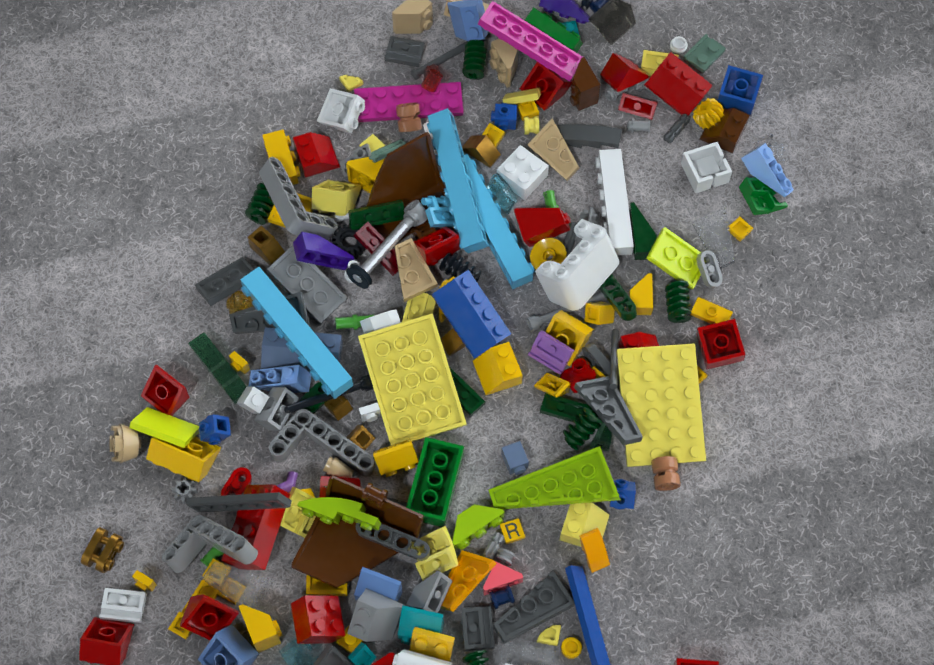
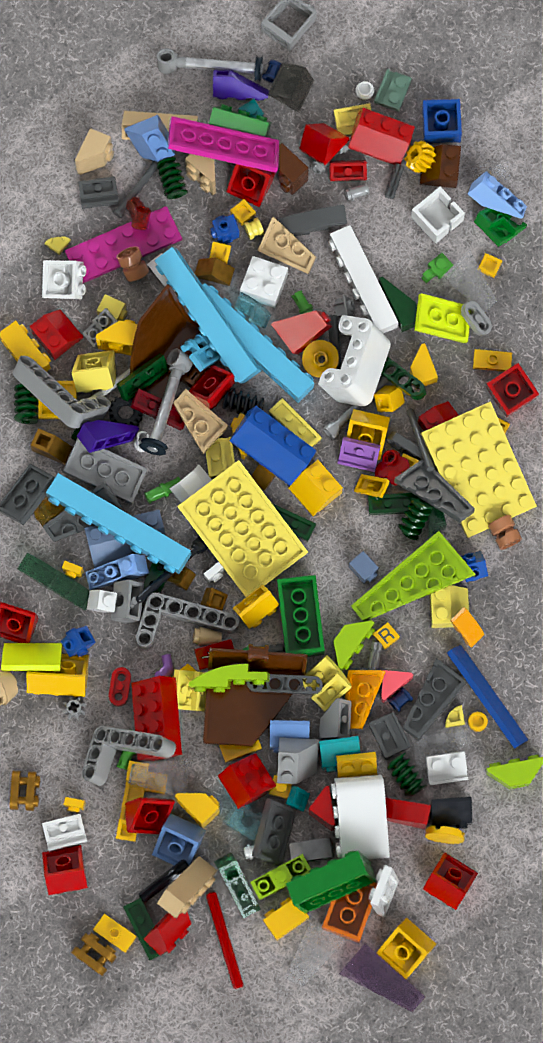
camera: 20 degrees left, 10 degrees up
(239, 502) = (134, 703): dark grey tile -> none
(382, 152) = (128, 308): sand green axle -> none
(502, 304) = (294, 422): none -> light yellow tile
(505, 556) = (389, 662): light grey bush -> none
(522, 96) = (233, 202): light yellow tile -> none
(677, 302) = (457, 361): dark green piece -> none
(688, 214) = (437, 267): none -> bright green plate

